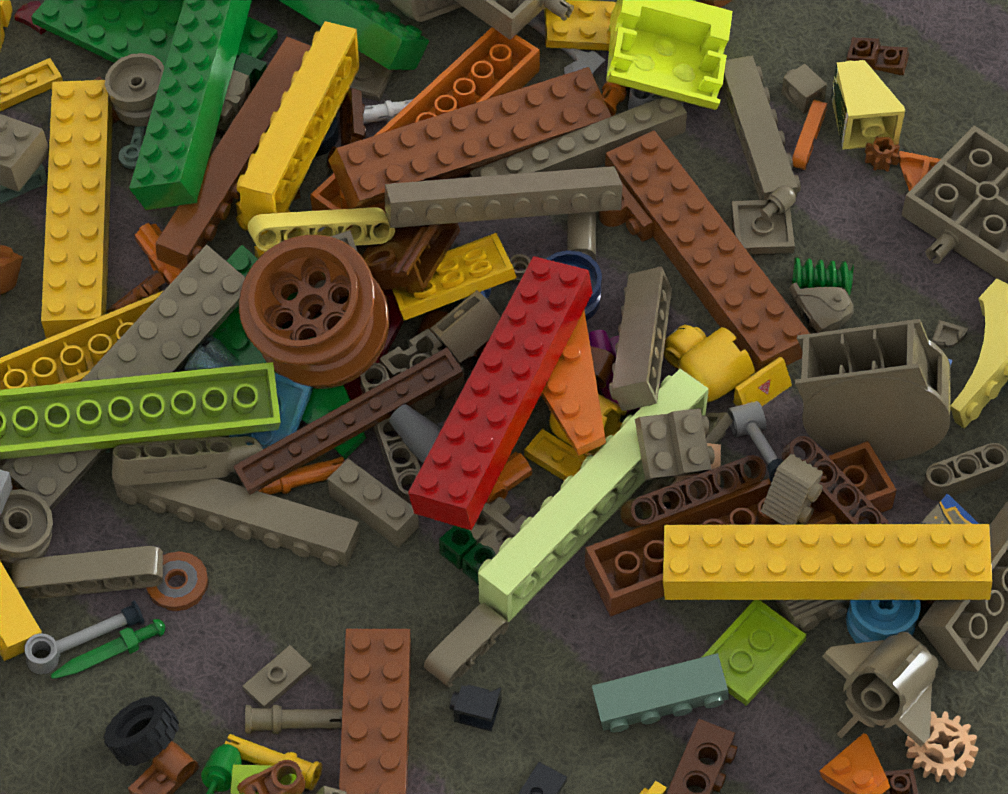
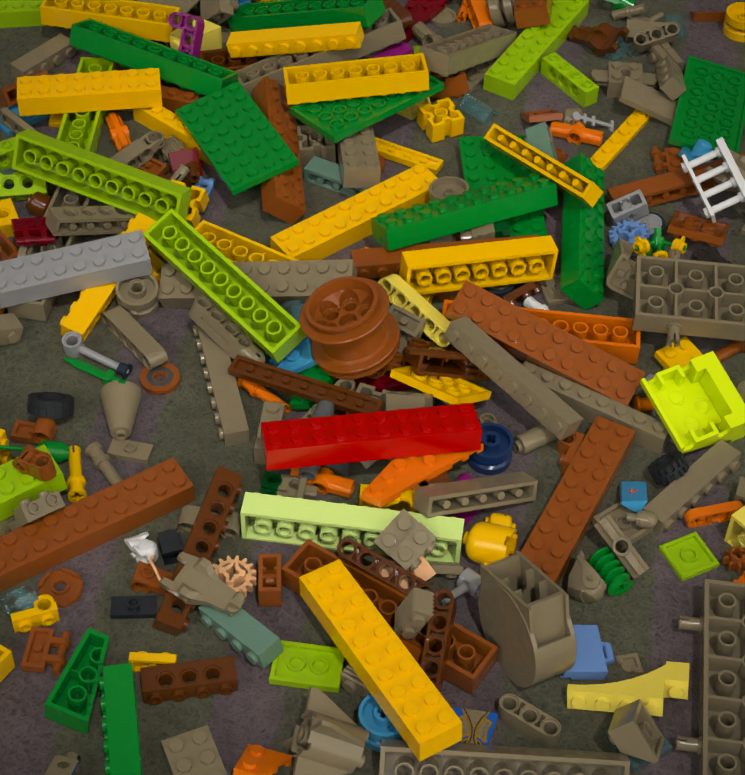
camera: 55 degrees right, 10 degrees down
(212, 651) = (120, 407): none -> dark tan cone
(464, 740) = (144, 550): none -> white animal
(515, 752) = (146, 580): none -> dark orange plate
(519, 676) = (229, 483): none -> reddish brown brick
(570, 676) = (237, 574): none -> light nougat gear
(587, 696) = (201, 585): none -> dark tan animal
(608, 623) = (269, 580): none -> dark orange brick
(734, 140) = (668, 468): none -> black tyre
(737, 189) = (633, 495): none -> dark azure slope
(789, 244) = (612, 534): none -> dark tan piece
(844, 194) = (688, 556): none -> lime tile

